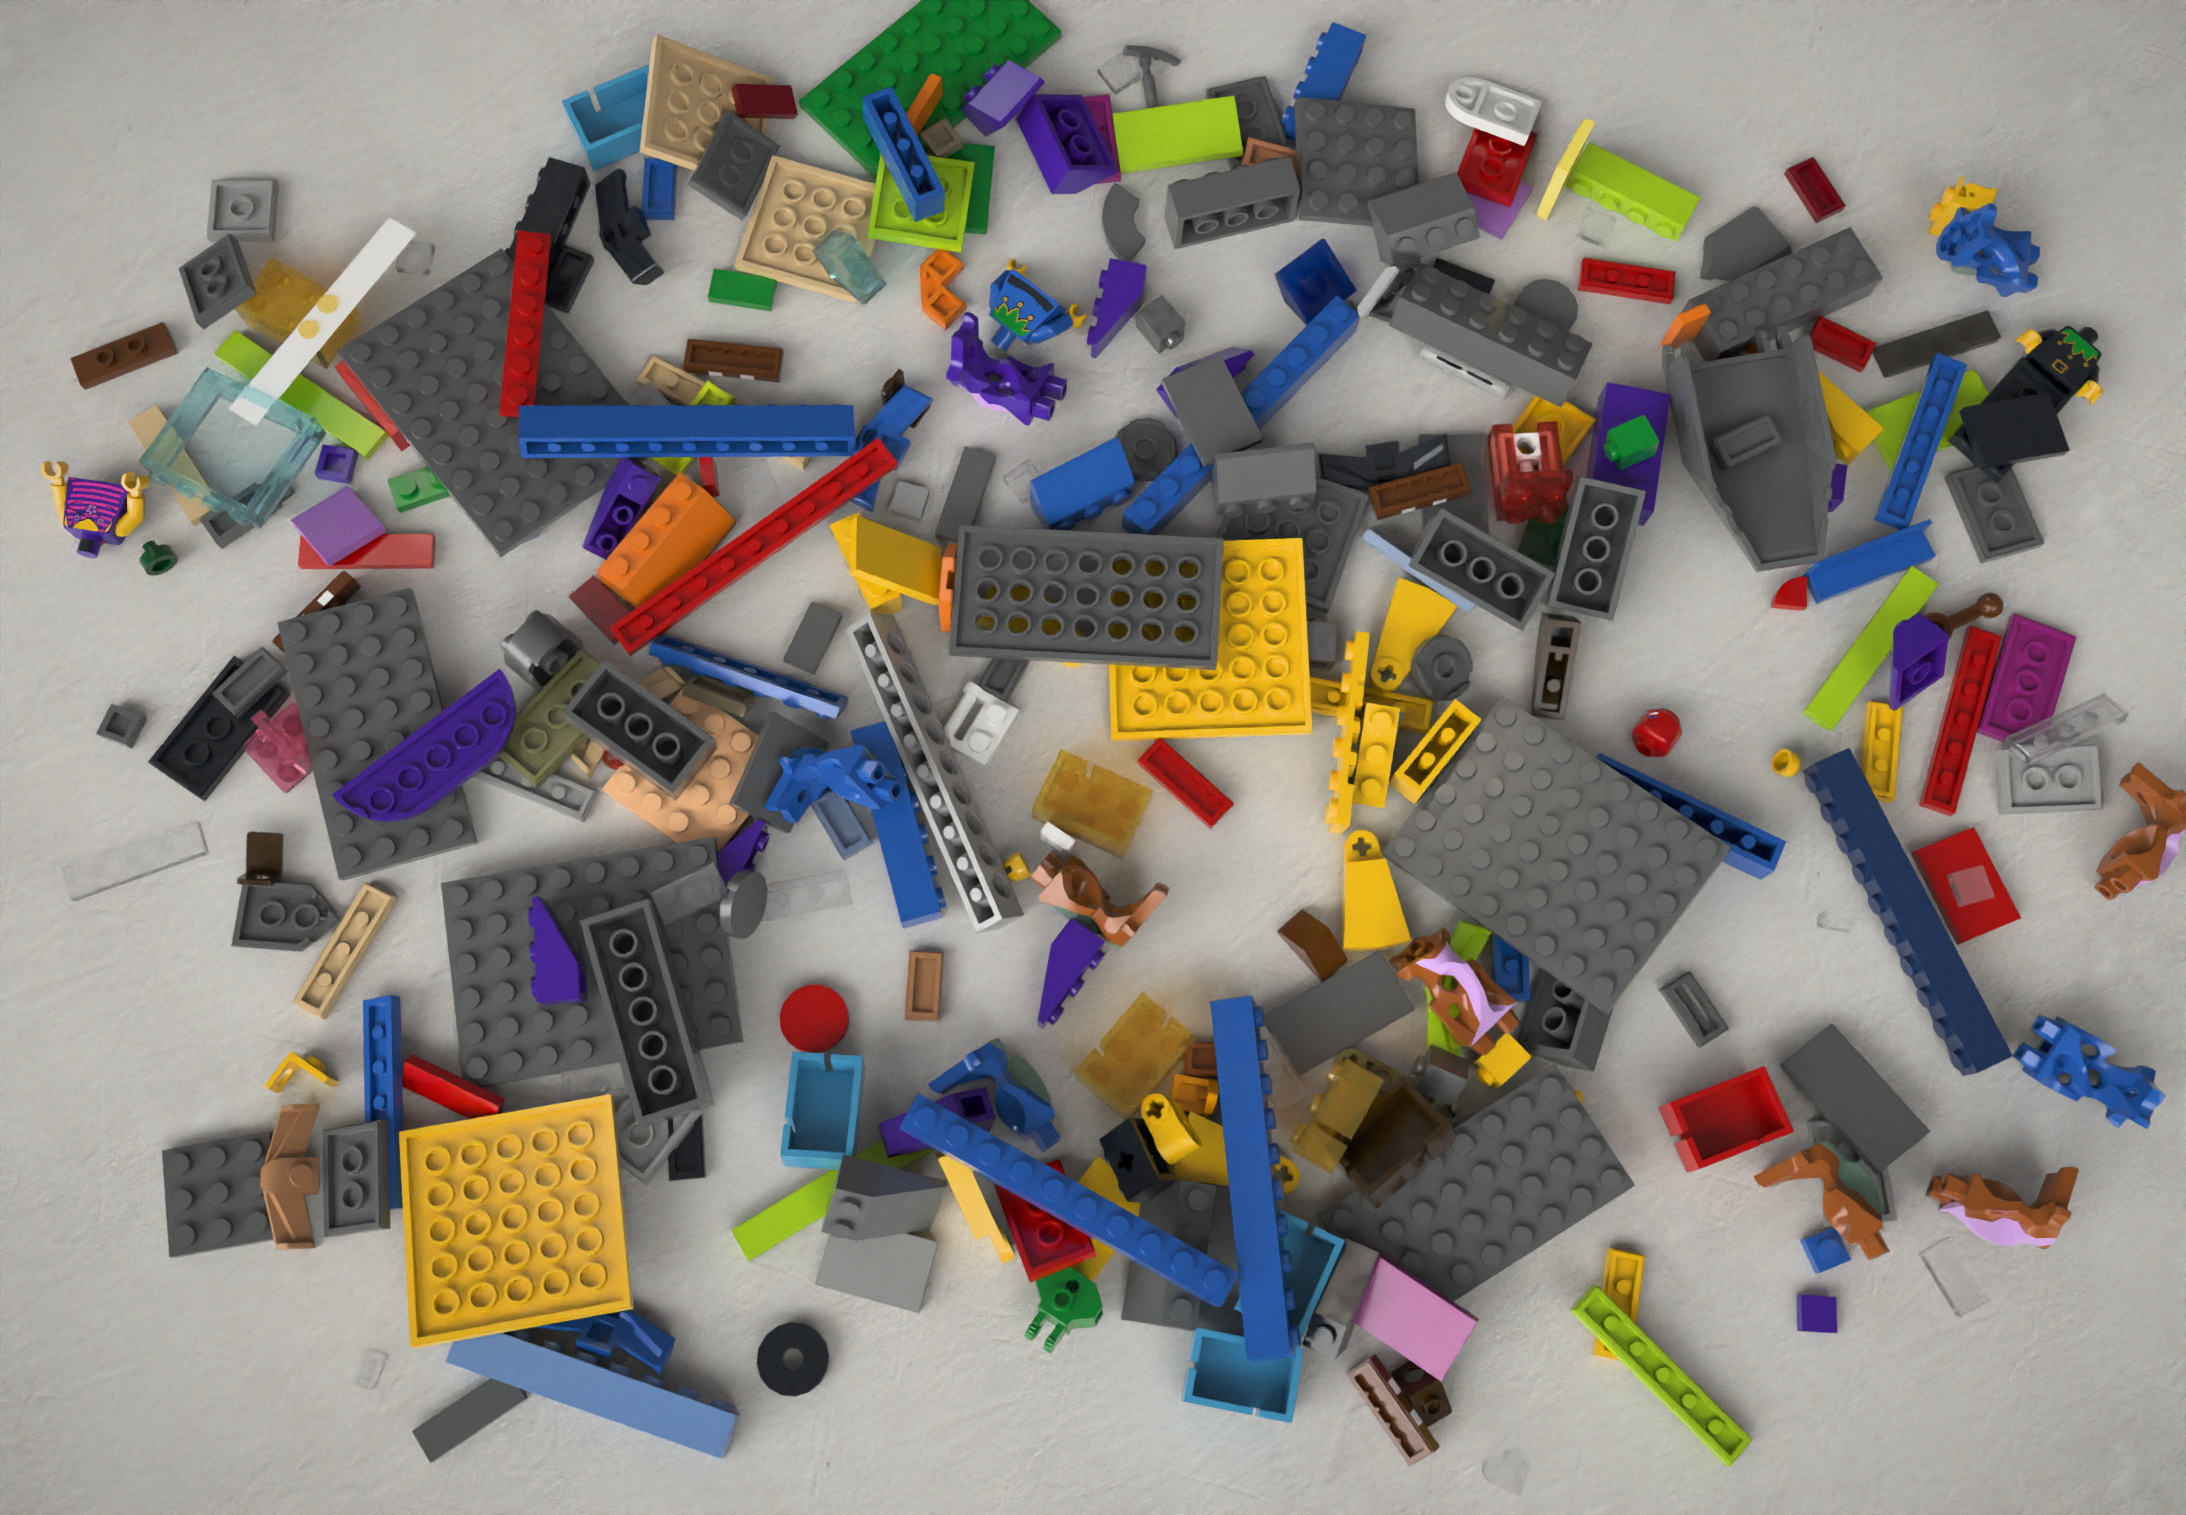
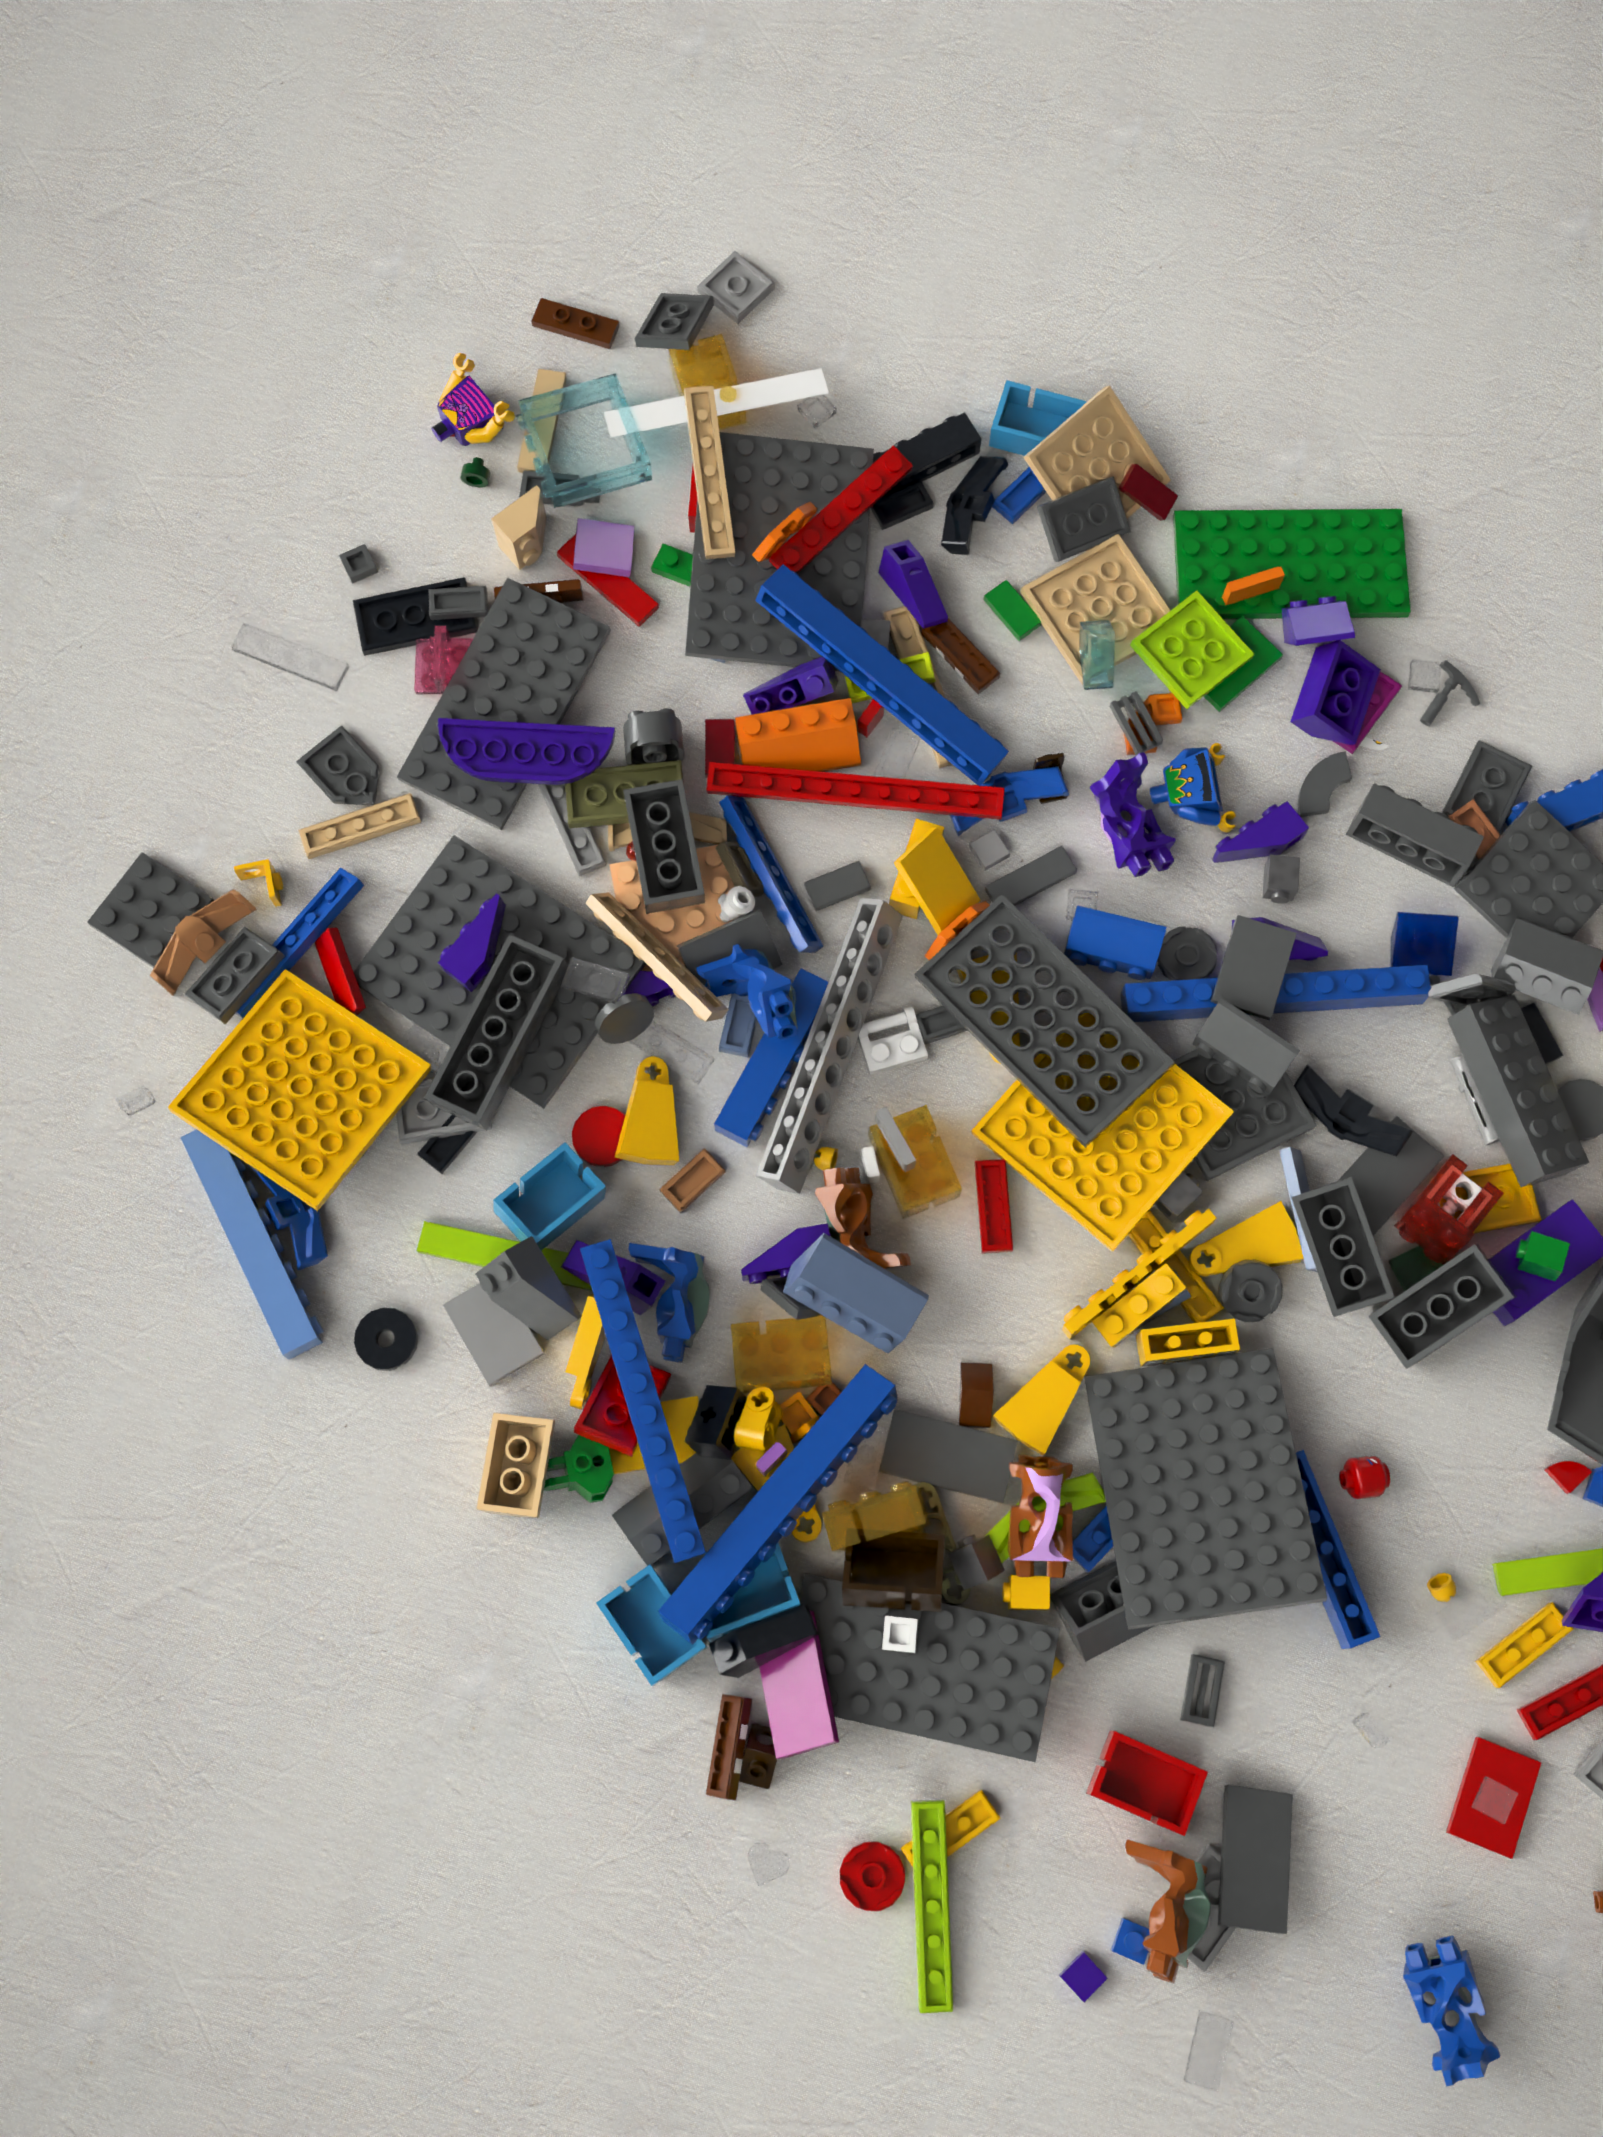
camera: 50 degrees right, 0 degrees up
(247, 571) = (522, 528): none -> tan slope
(263, 859) = (363, 723): dark brown bracket -> none
(307, 397) = (662, 447): lime tile -> none
(336, 464) = (641, 506): dark purple tile -> none
(378, 380) = (709, 472): none -> tan plate
(467, 1417) = (163, 1185): dark grey tile -> none
(493, 375) = (787, 527): none -> orange tile
(635, 333) = (911, 582): none -> dark purple slope
(721, 827) = (654, 954): none -> tan plate
(746, 725) = (736, 903): none -> white brick
(841, 966) = (650, 1119): none -> yellow piece
(903, 154) = (1204, 606): blue brick -> none
(935, 286) = (1126, 702): none -> dark grey tile
(941, 139) = (1246, 619): dark tan plate -> none
(1010, 1355) = (515, 1465): none -> tan slope
(1065, 798) = (895, 1139): none -> light grey tile
(1100, 1004) = (774, 1290): none -> dark grey tile
(1150, 952) = (855, 1293): none -> sand blue slope
(1177, 134) = (1424, 755): lime tile -> none
(1209, 1148) = (771, 1458): none -> medium lavender tile
(1419, 491) = (1355, 1154): reddish brown plate -> none
(1442, 1188) = (900, 1634): none -> white plate
(1554, 664) = (1335, 1362): dark brown slope -> none
(1594, 1398) = (872, 1876): none -> red tile
(1906, 913) = (1425, 1772): dark blue brick -> none
(1997, 1211) = (1280, 2038): dark orange hips -> none

